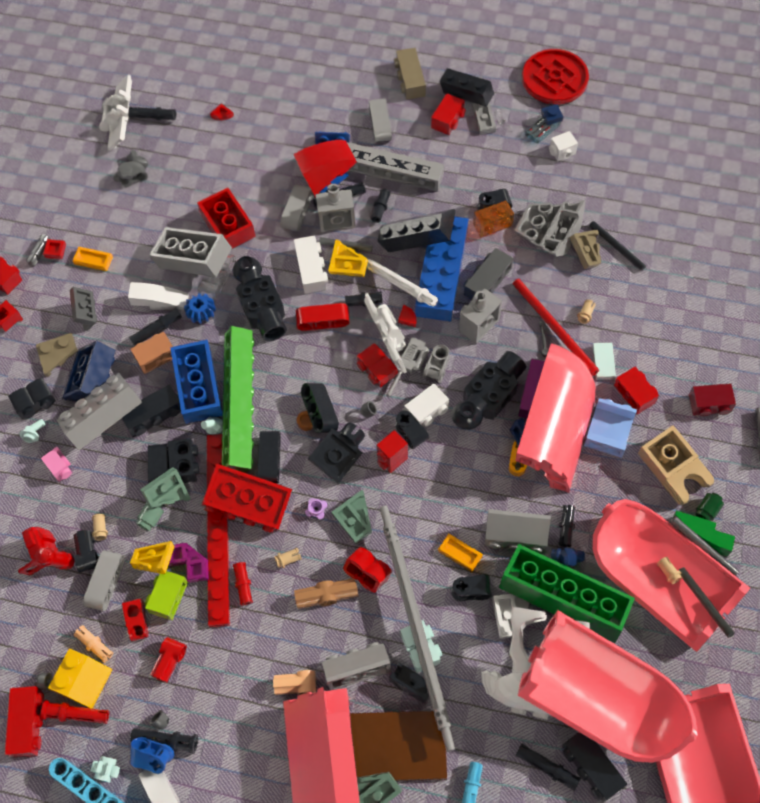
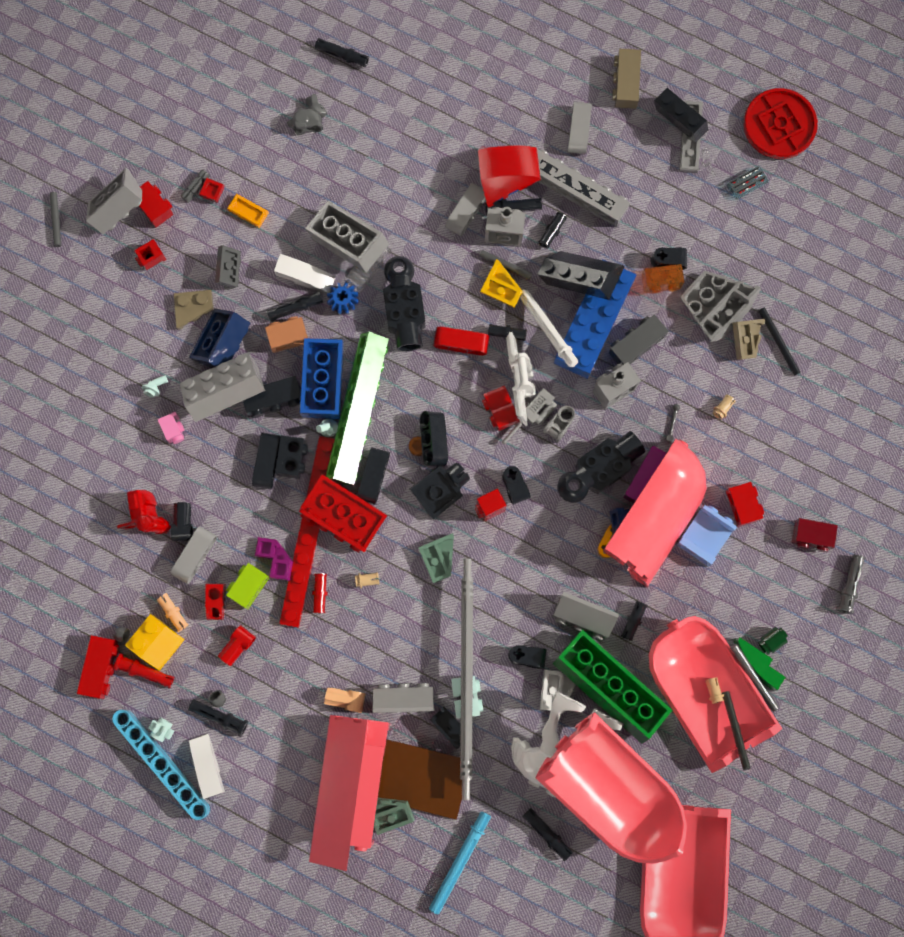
camera: 10 degrees right, 15 degrees up
(32, 398) = (160, 352): black brick -> none
(99, 527) = (199, 501): tan pin -> none
(116, 119) = (305, 54): white piece -> none
(148, 755) = (202, 728): blue piece -> none
(149, 517) = (248, 503): sand green brick -> none
(153, 557) = (243, 547): yellow wing -> none
(165, 489) = (268, 485): sand green wing -> none
(221, 113) = (416, 71): red tile -> none
(226, 217) = (391, 205): red brick -> none
(310, 264) = (464, 279): white brick -> none
(313, 503) = (400, 539): lavender plate -> none
(321, 137) = (518, 136): blue hinge -> none
(326, 593) = (393, 624): medium nougat piece -> none
(367, 569) = (437, 613): red brick -> none
(368, 409) = (480, 452): dark grey hinge -> none
(407, 316) = (545, 363): red tile -> none
(428, 405) = (538, 465): white brick -> none
(448, 114) = (652, 140): red brick -> none
(460, 552) = (527, 618): light orange tile -> none
(552, 114) = (761, 171): dark blue plate -> none
(554, 325) = (687, 414): red piece -> none
(563, 146) = (761, 212): white brick -> none
(568, 556) = (624, 651): dark blue animal -> none
(593, 766) = (588, 848): black brick -> none
(604, 360) = (724, 463): light aqua tile -> none
(675, 469) = (761, 593): tan brick -> none

